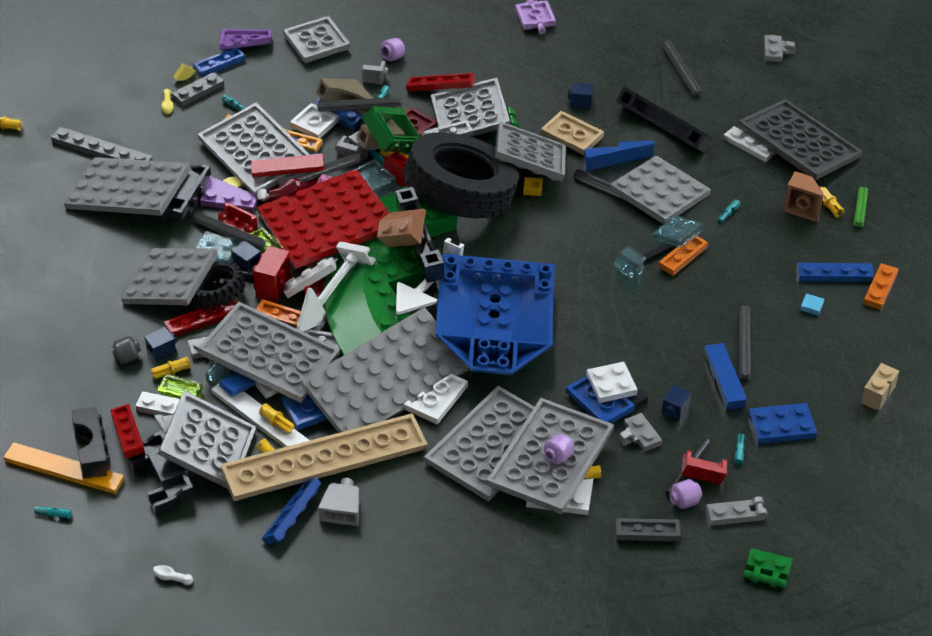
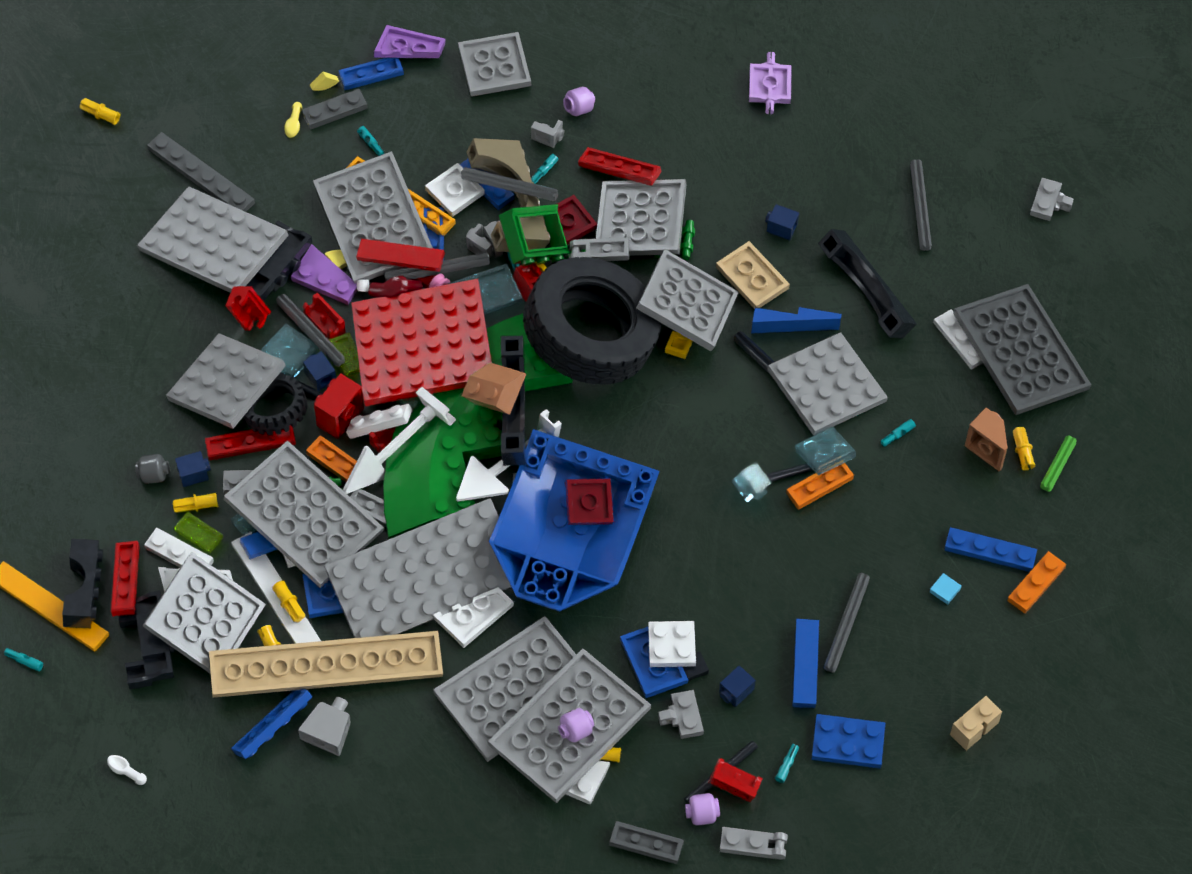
camera: 15 degrees right, 15 degrees up
(172, 222) = (247, 307): none -> red hinge
(505, 297) = (589, 501): none -> dark red plate

